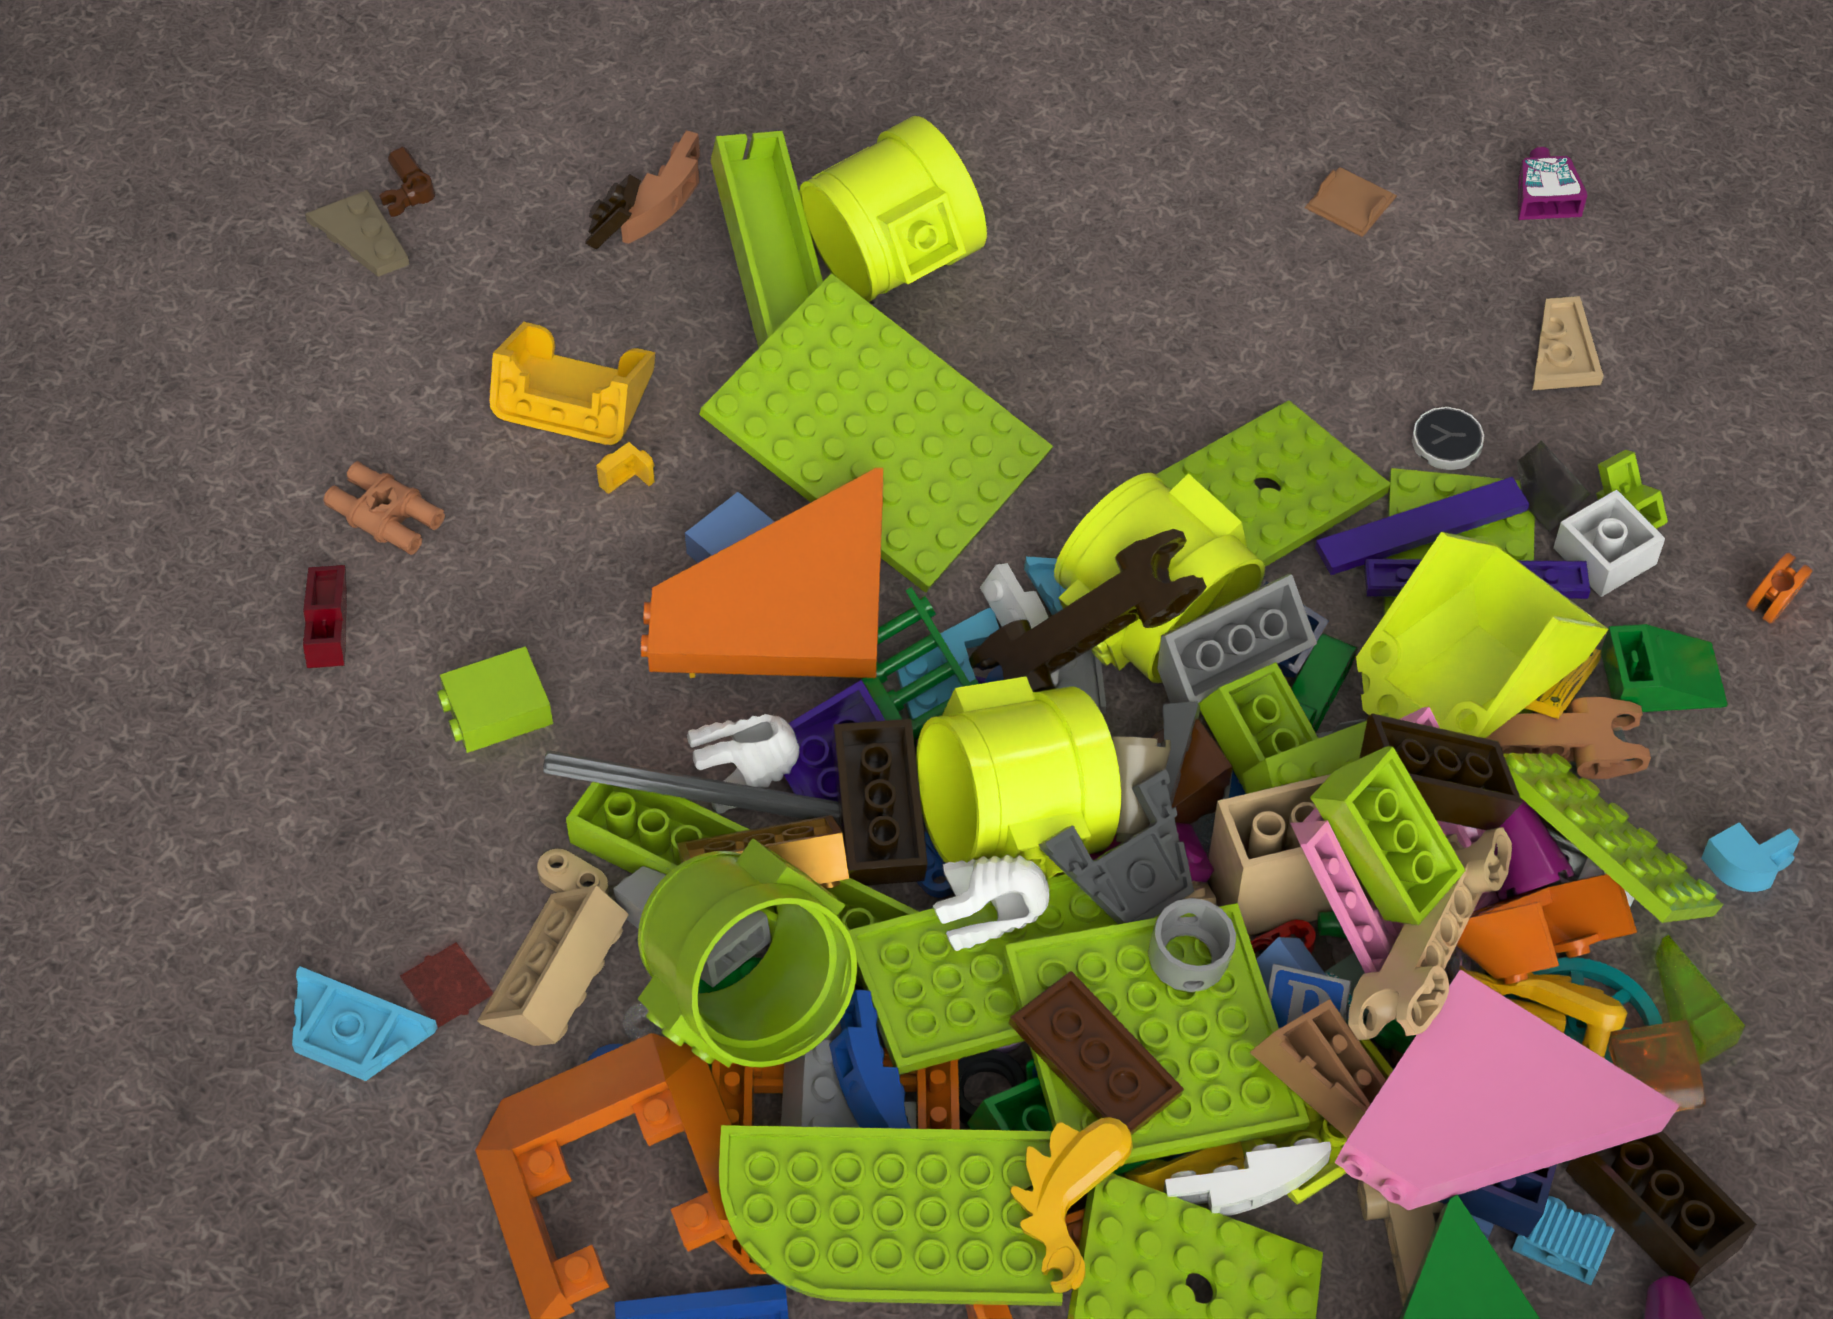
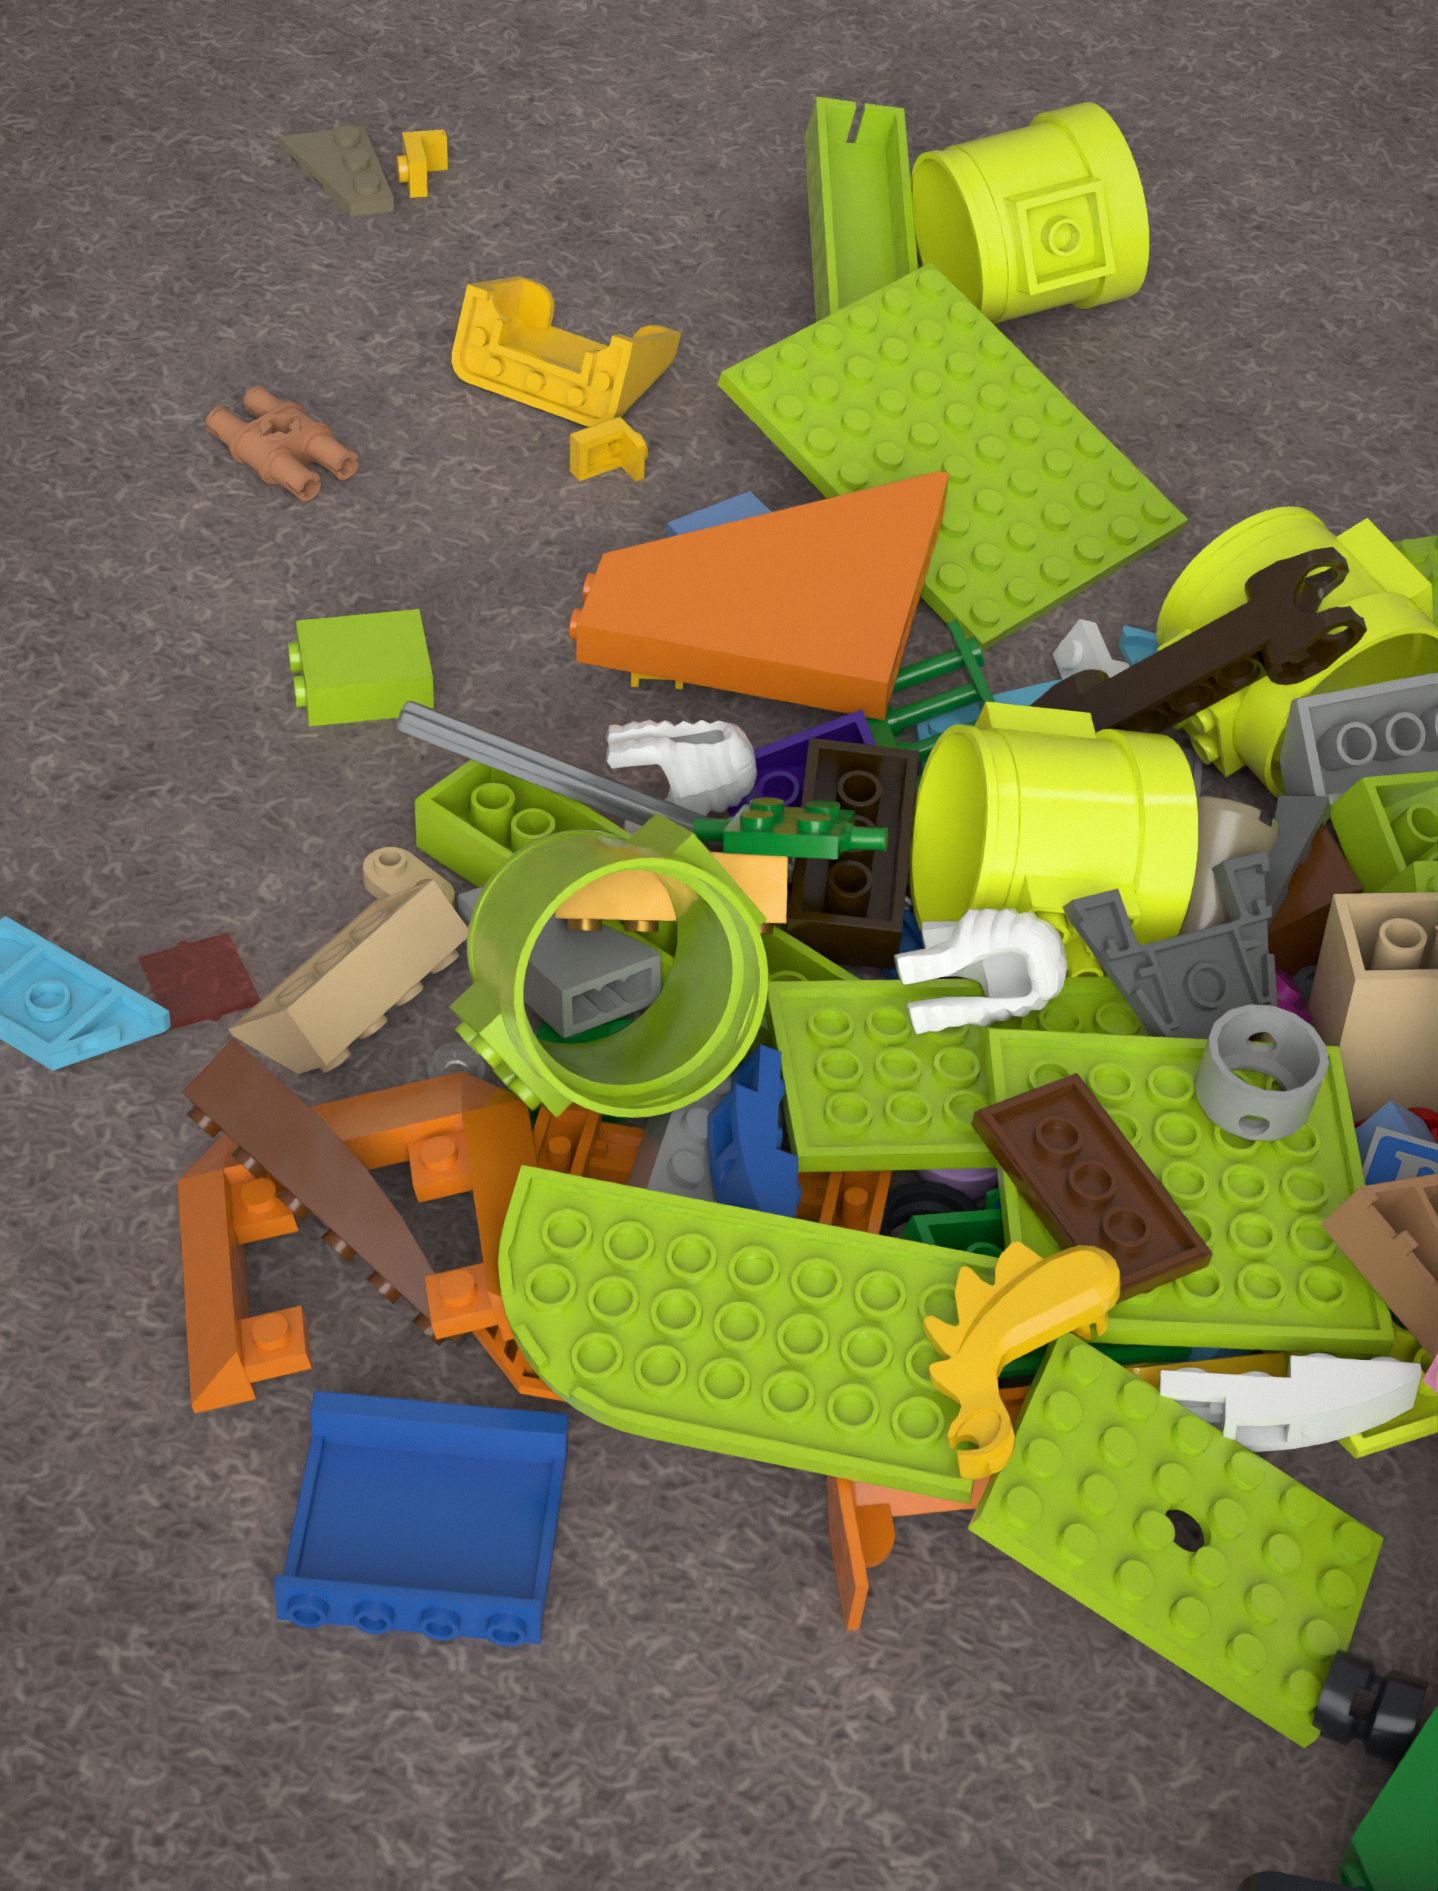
camera: 10 degrees right, 10 degrees down
(325, 616) = (167, 545): dark red slope -> none
(416, 187) = (420, 116): reddish brown bar -> none
(417, 212) = (421, 153): none -> yellow bracket
(578, 1144) = (317, 1172): none -> reddish brown slope
(612, 211) = (658, 189): dark brown plate -> none
(664, 194) = (737, 184): nougat slope -> none
(839, 811) = (778, 830): none -> green plate

